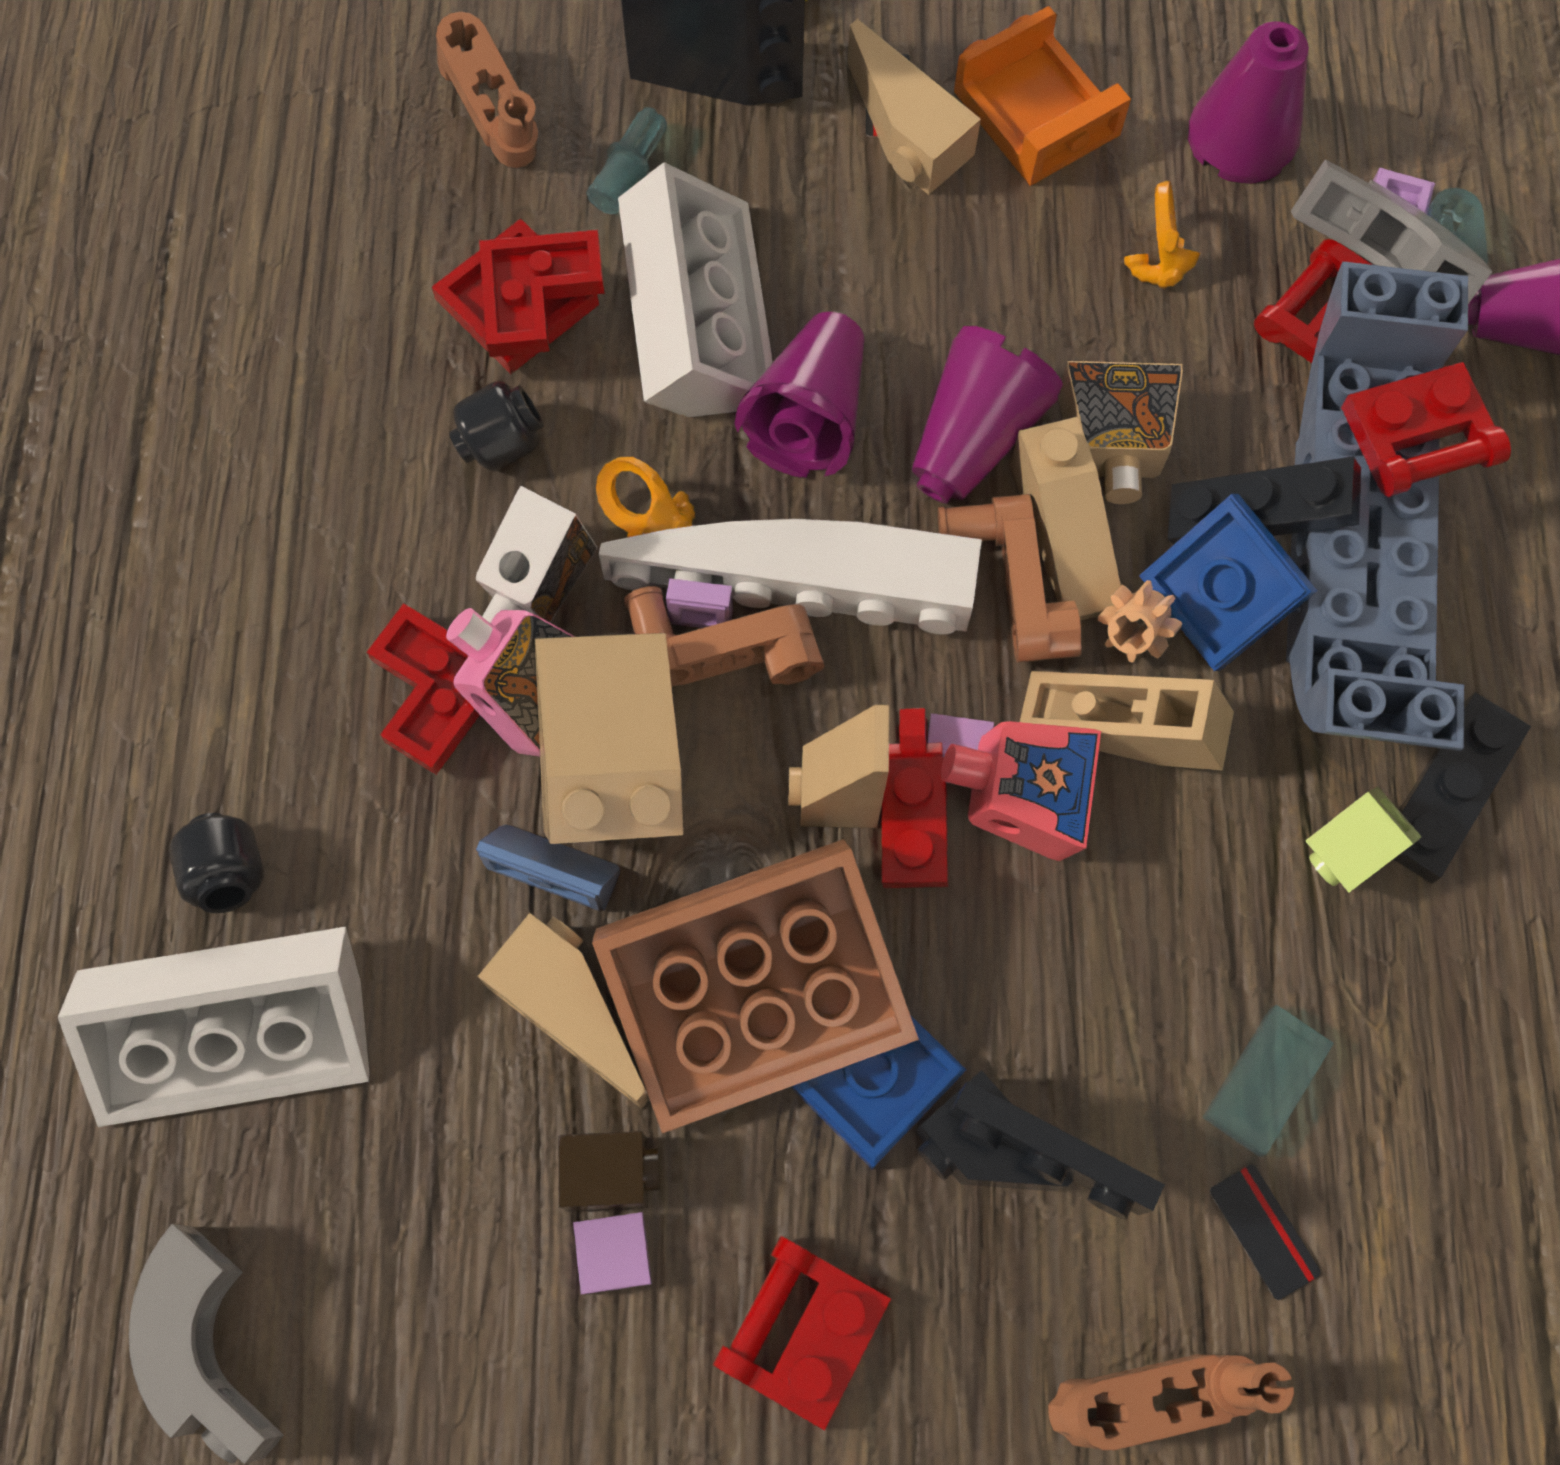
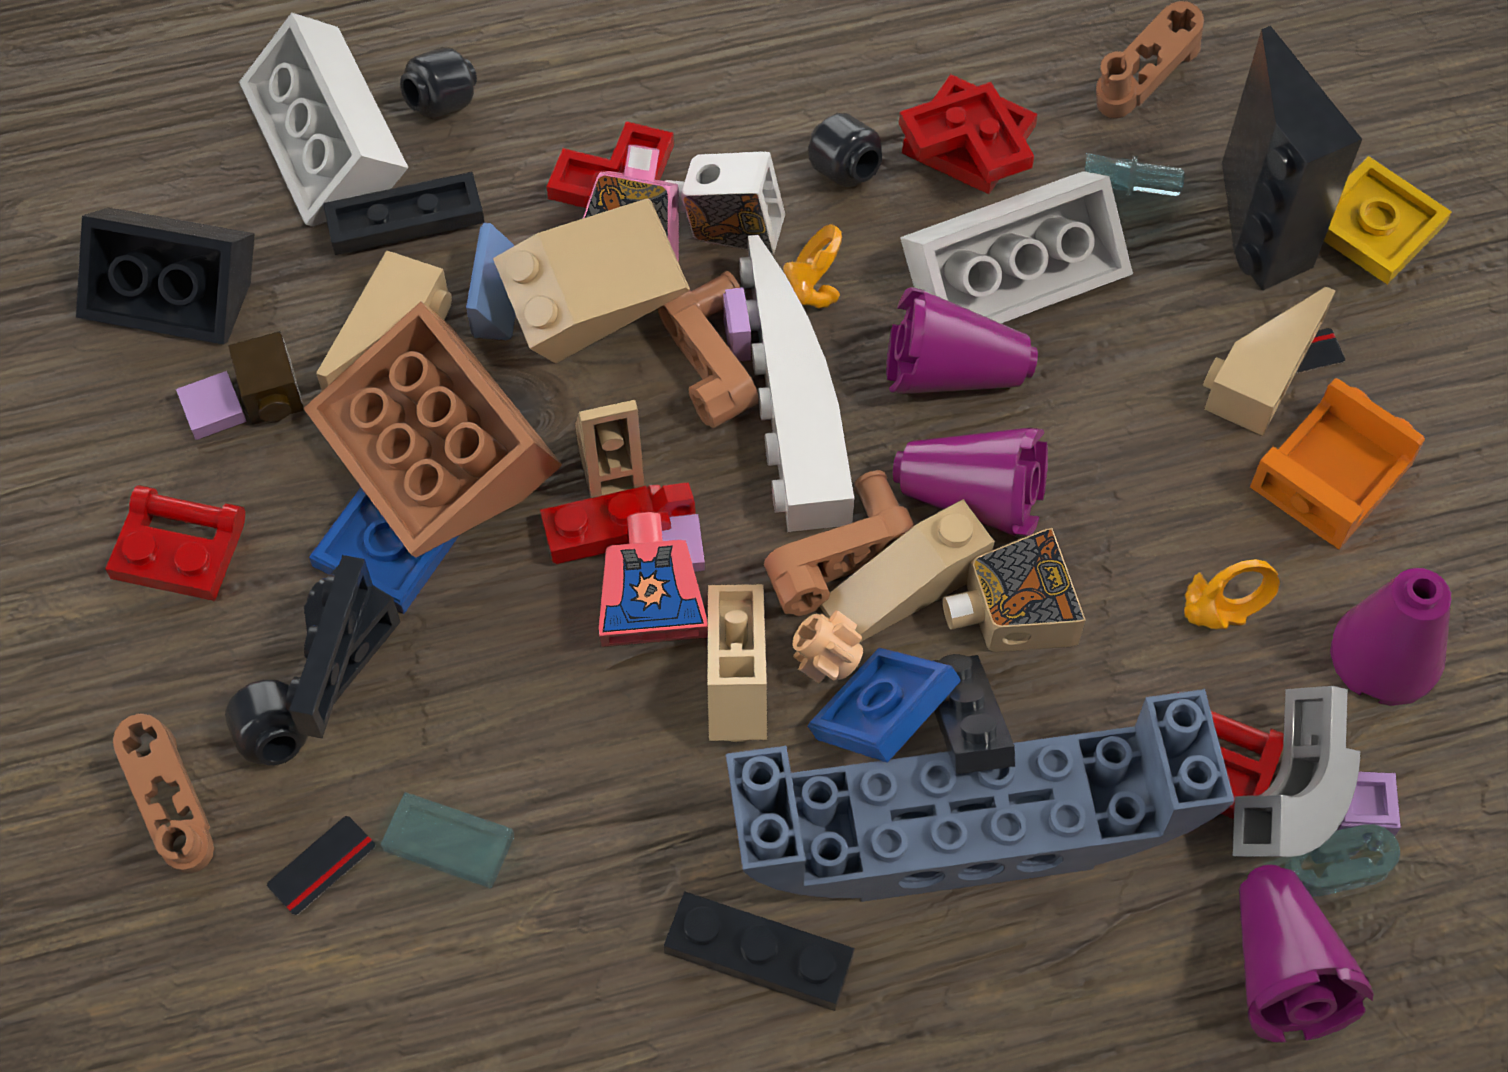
camera: 75 degrees right, 10 degrees down
(175, 1350) = (93, 164): light grey arch -> none
(393, 1283) = (162, 274): none -> black slope
(403, 952) = (403, 213): none -> black plate
(1092, 1258) = (262, 723): none -> black head
(1360, 840) = (674, 860): yellowish green brick -> none
(1420, 412) = (1092, 807): red plate -> none

